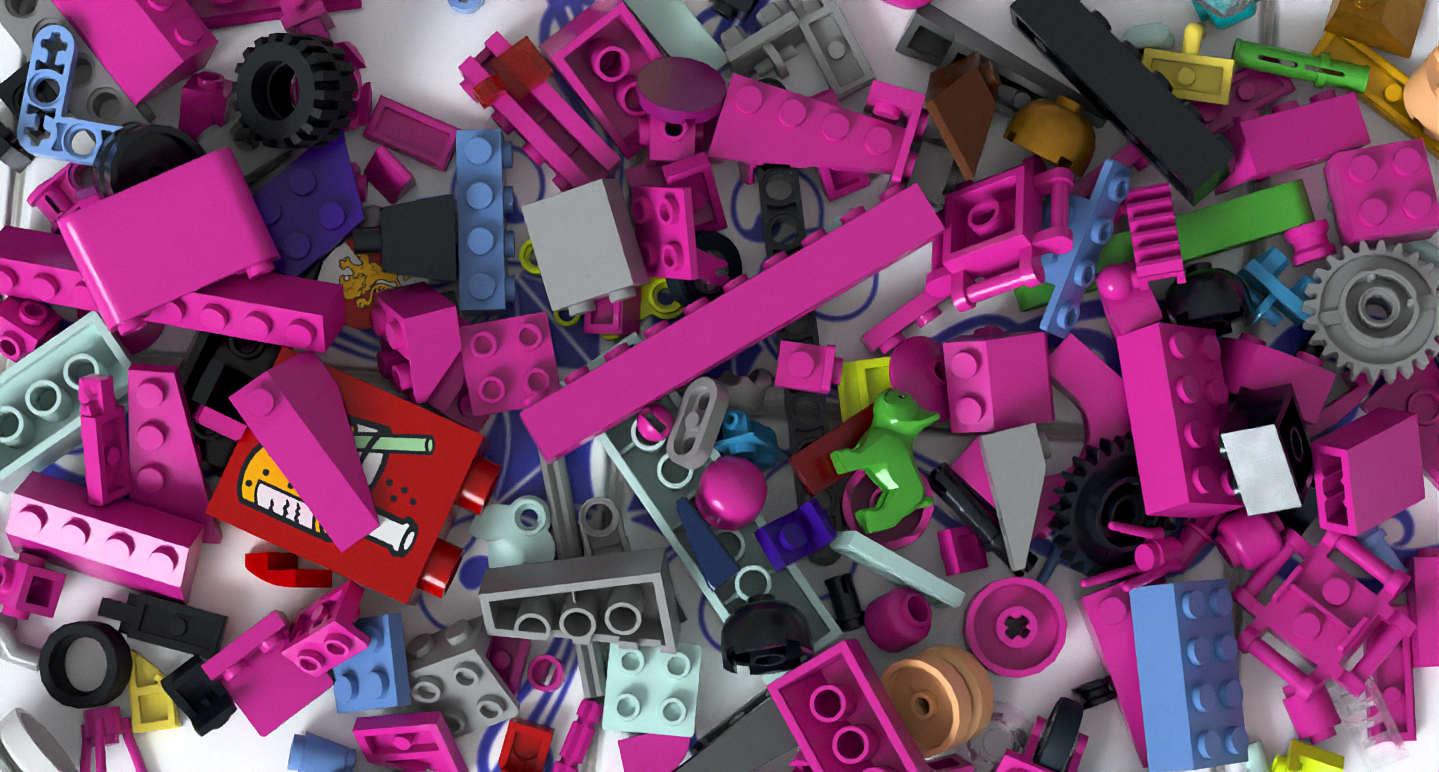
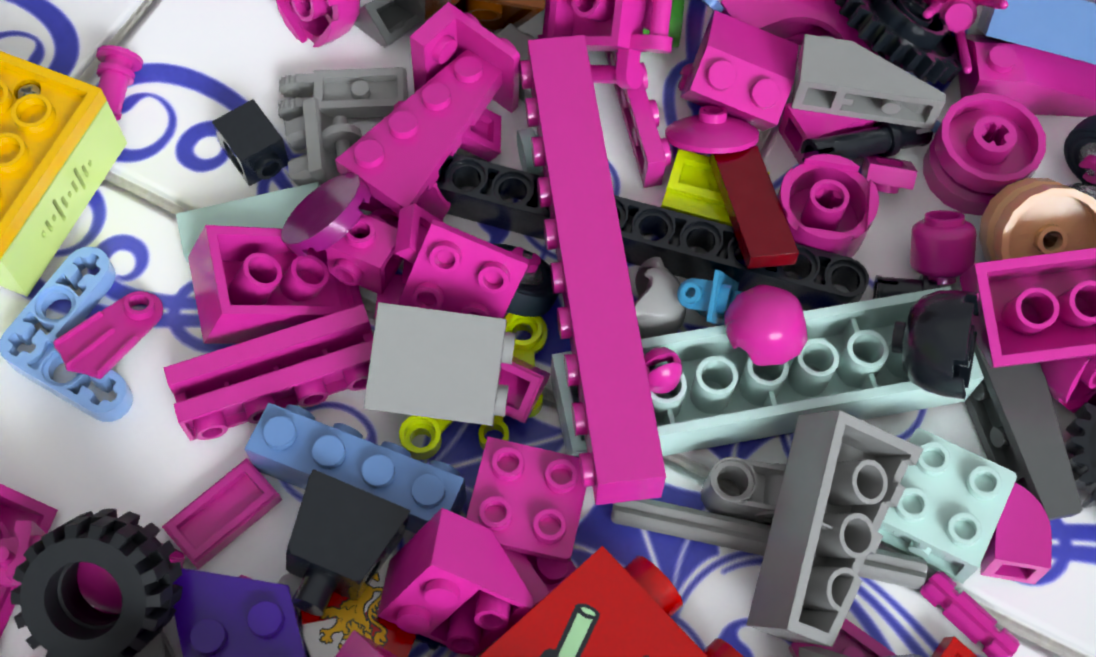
camera: 70 degrees left, 20 degrees down
(389, 175) = (252, 551): dark pink slope -> none
(509, 539) = (719, 593): light aqua plate -> none
(517, 70) = (215, 361): clear red plate -> none
(539, 670) = (891, 606): dark pink hinge -> none
(697, 423) = (683, 325): light grey plate -> none
(713, 557) = (826, 365): dark blue slope -> none
(796, 535) = (832, 282): dark purple bracket -> none
(807, 367) = (662, 211): dark pink bracket -> none
(889, 460) = (794, 167): bright green animal -> none
(896, 569) = (892, 222): light aqua tile -> none
(1094, 692) = (1063, 118): black bush -> none

